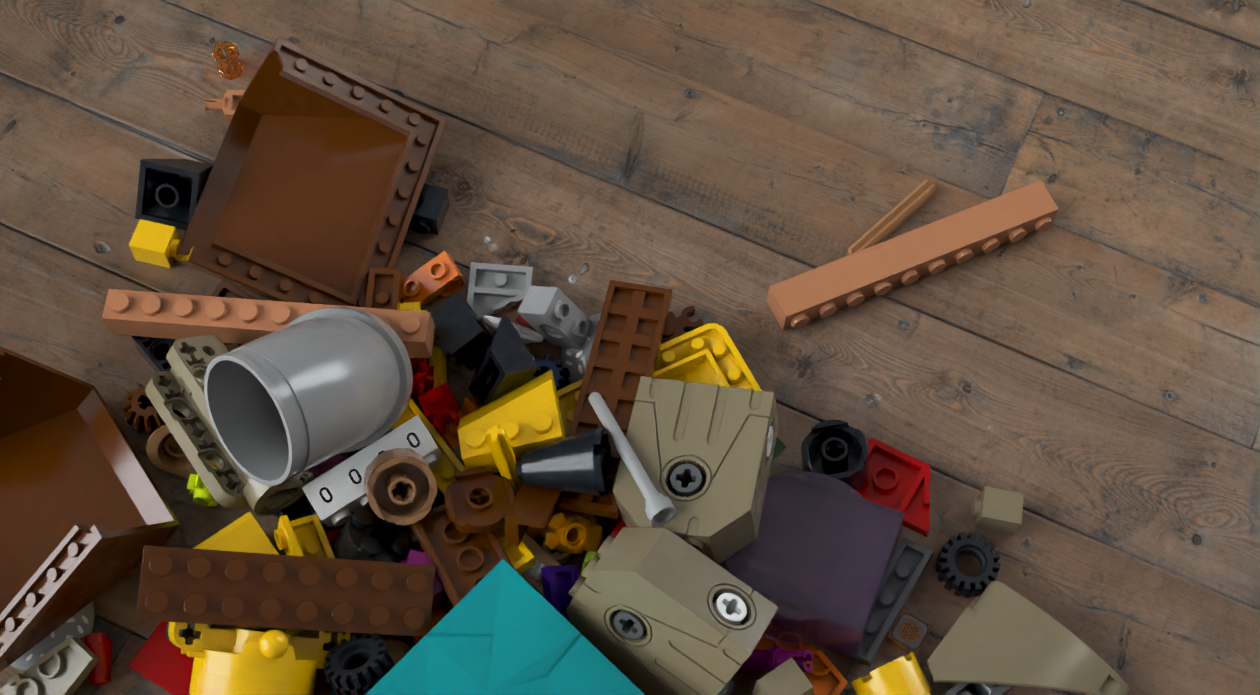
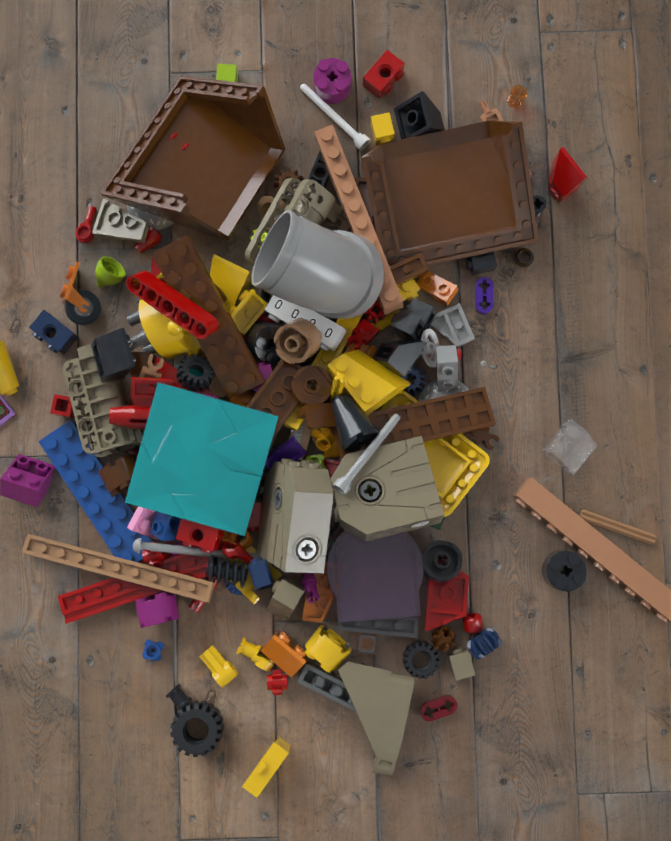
camera: 70 degrees right, 20 degrees up
(39, 273) = (332, 70): none -> magenta brick
(83, 220) = (386, 64): none -> red brick
(152, 280) = (361, 141): none -> white piece
(226, 642) = (172, 304): none -> red beam
(373, 52) = (564, 176): none -> red slope
(454, 157) = (524, 257): none -> dark brown plate
(477, 232) = (488, 295): none -> dark purple beam
(749, 224) = (570, 446): none -> clear slope
(922, 310) = (573, 577): none -> black brick
(945, 467) = (472, 623): none -> red piece
(950, 516) = (443, 638): none -> reddish brown gear
(981, 461) = (484, 643): none -> dark blue gear
(1043, 575) = (440, 712): none -> dark red beam

